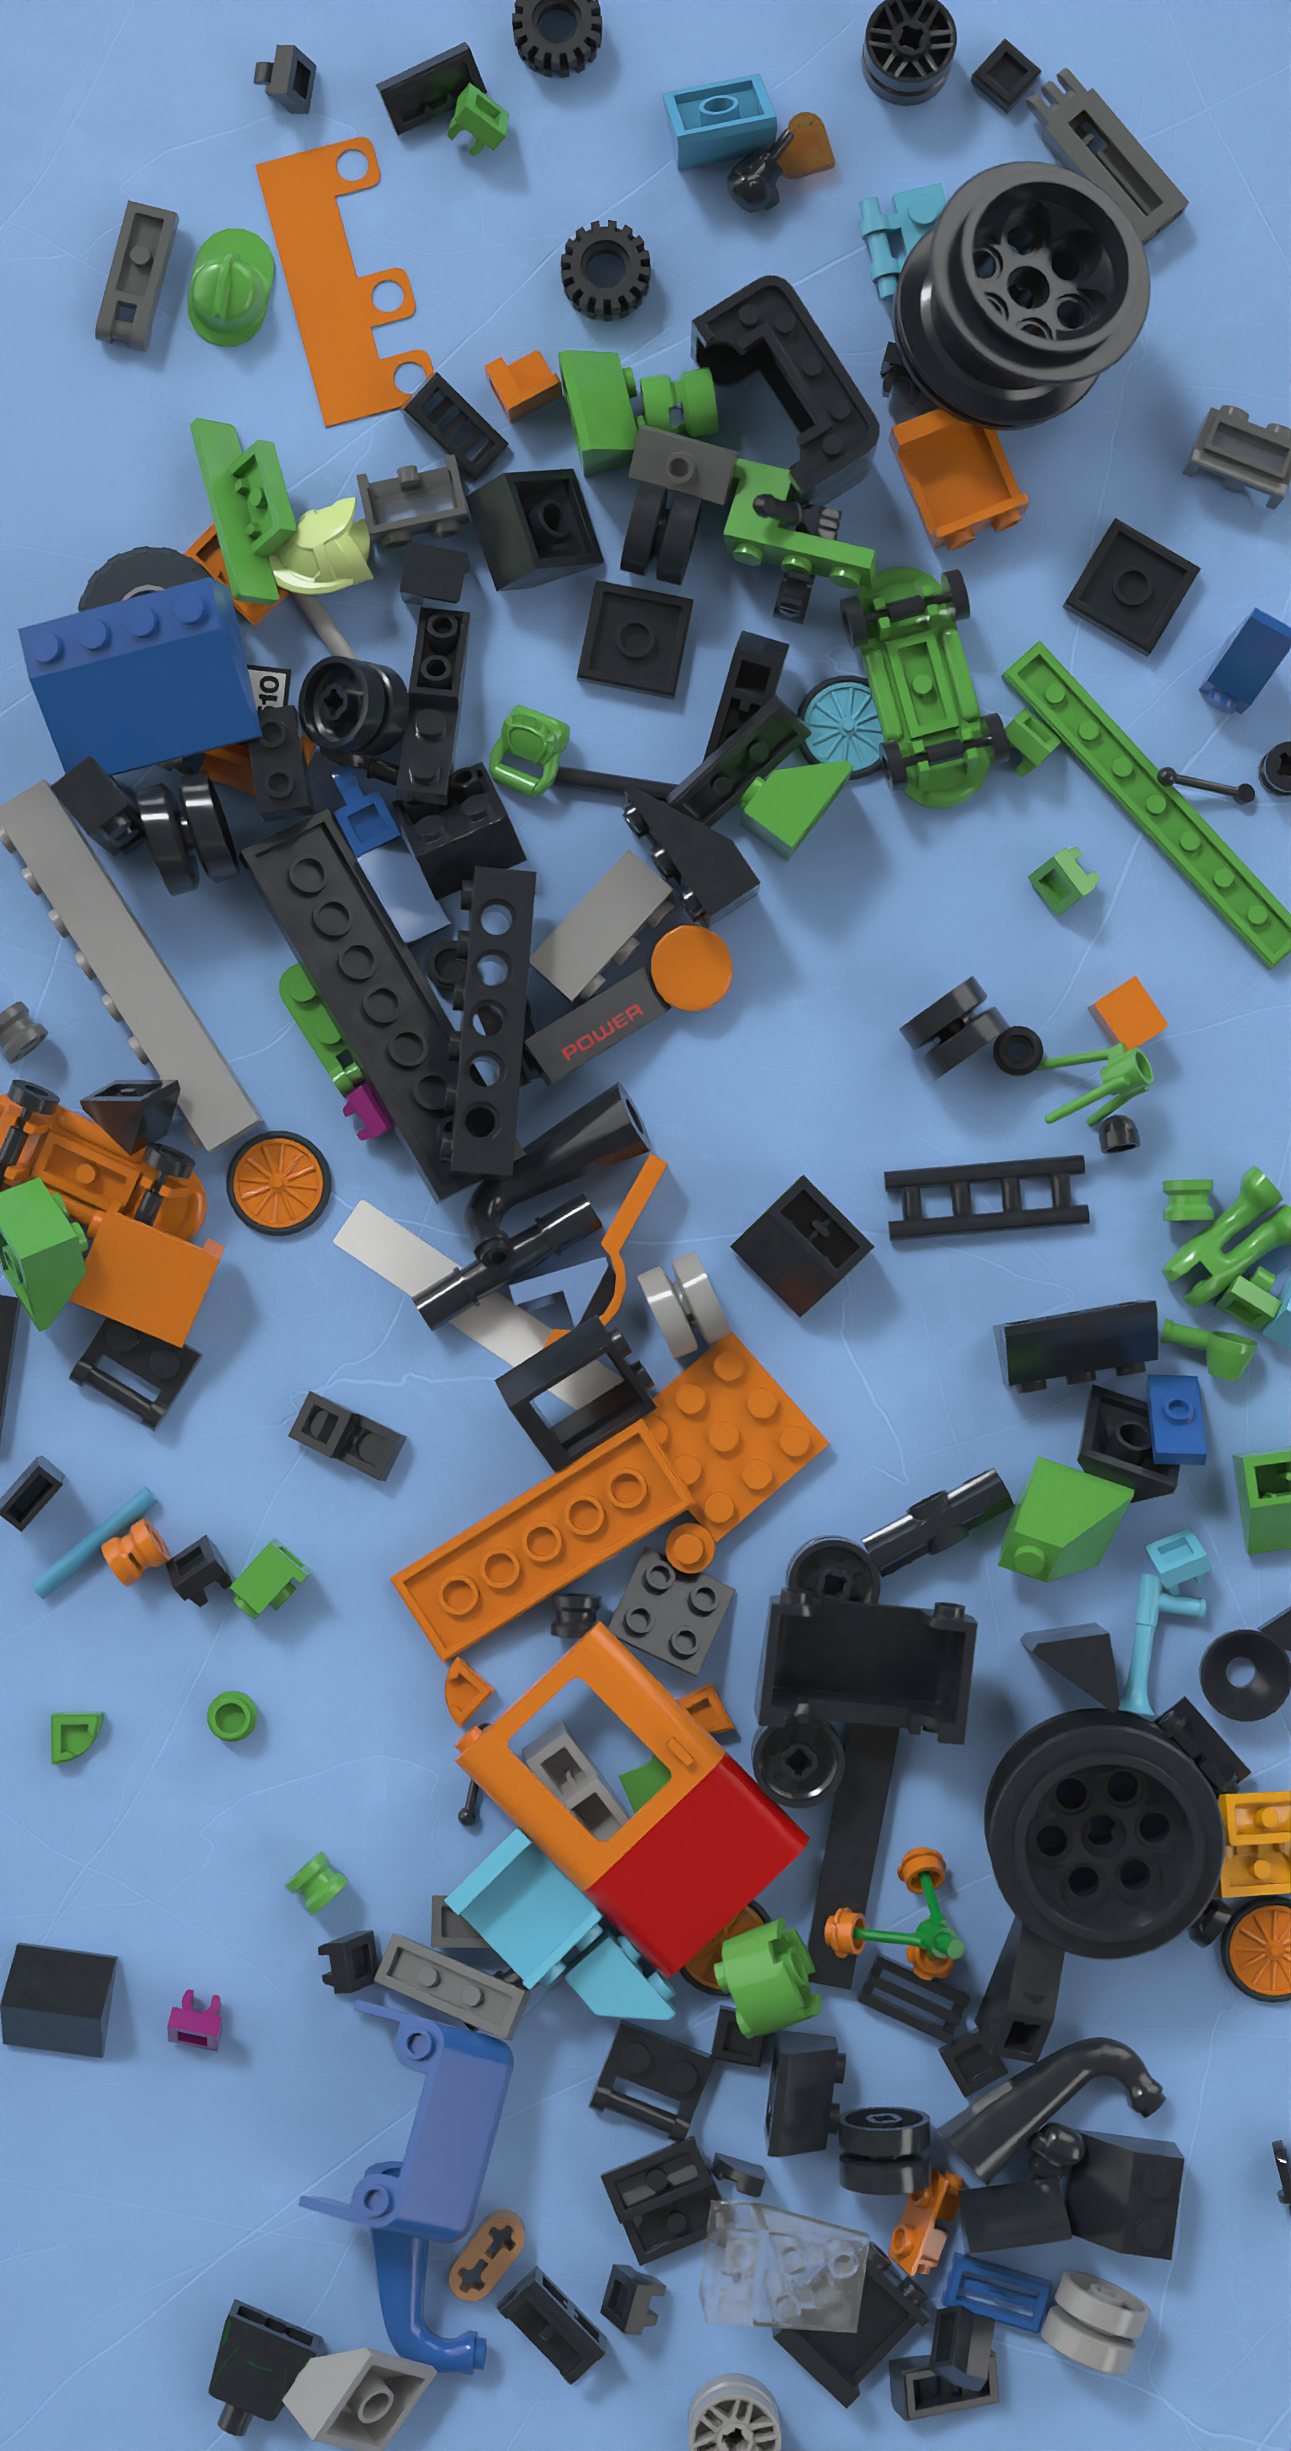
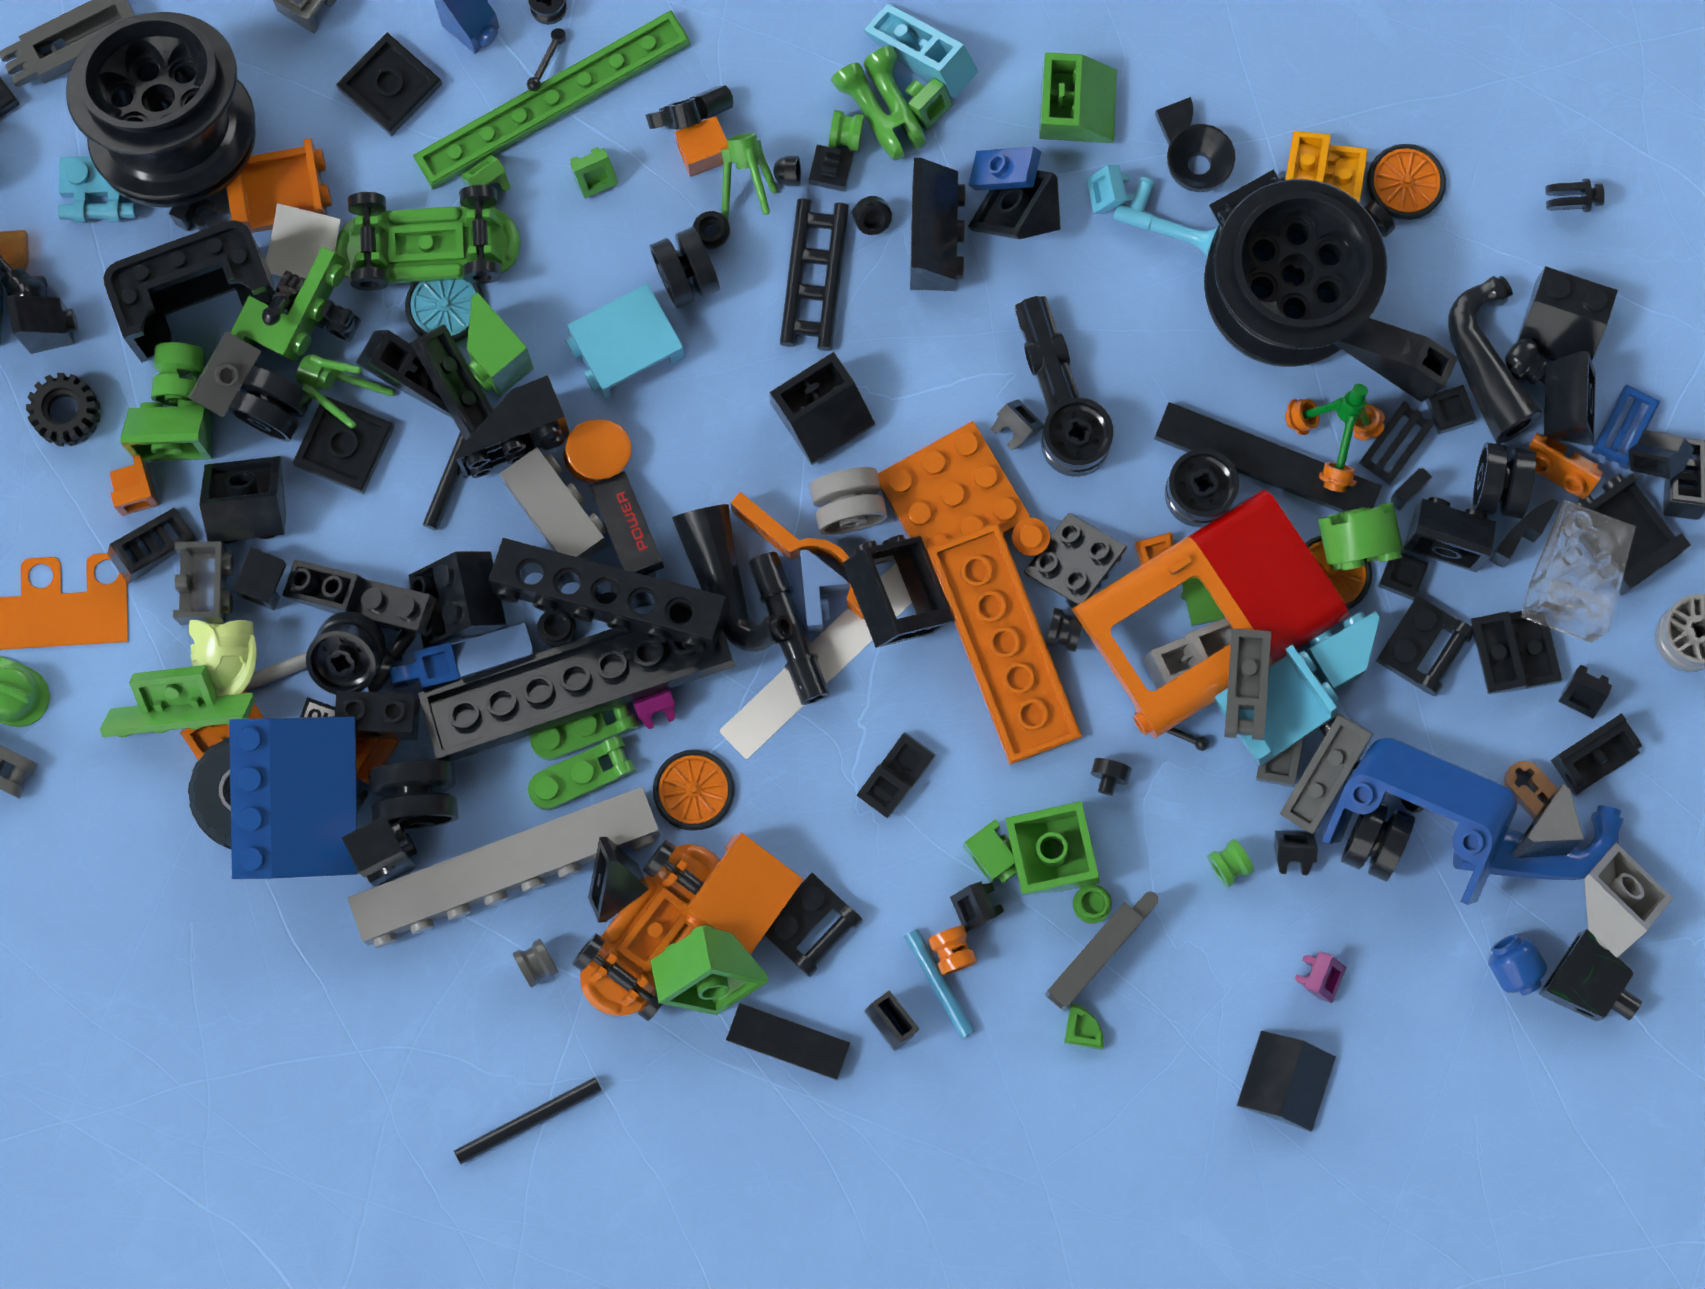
camera: 85 degrees left, 10 degrees down
(170, 1739) = (1099, 951): none -> dark grey hinge
(259, 2269) = (1517, 964): none -> blue head
(266, 1035) = (579, 775): none -> bright green plate
(282, 1655) = (1052, 849): none -> bright green slope
(371, 2072) = (1379, 840): none -> black wheel
(400, 1708) = (1110, 773): none -> black tile
(436, 2289) = (1553, 830): none -> slope
(465, 1690) = (1106, 726): orange tile -> none
(535, 739) = (400, 530): bright green piece -> none
(538, 1869) = (1247, 682): none -> dark grey plate
(710, 212) = (41, 322): none -> black slope
(716, 590) = (321, 373): none -> bright green plant
(748, 2176) = (1506, 592): black tile -> none
(832, 2197) = (1528, 527): none -> black slope
(840, 1503) = (1020, 421): none -> black tile
(842, 969) = (623, 339): none -> medium azure panel
(853, 2028) = (1410, 488): none -> black tile
(866, 1664) = (1140, 414): black windscreen -> none
(892, 521) = (298, 239): none -> white sticker
(1061, 1522) = (1062, 263): bright green slope -> none
(1079, 1257) = (872, 215): none -> black tile
(1080, 1655) = (1167, 267): black slope -> none
(1095, 2322) = (1656, 355): light grey wheel -> none
(1135, 1189) = (831, 168): none -> black tile
(1166, 988) = (692, 110): none -> black bar
(1226, 1352) = (964, 127): bright green bar -> none

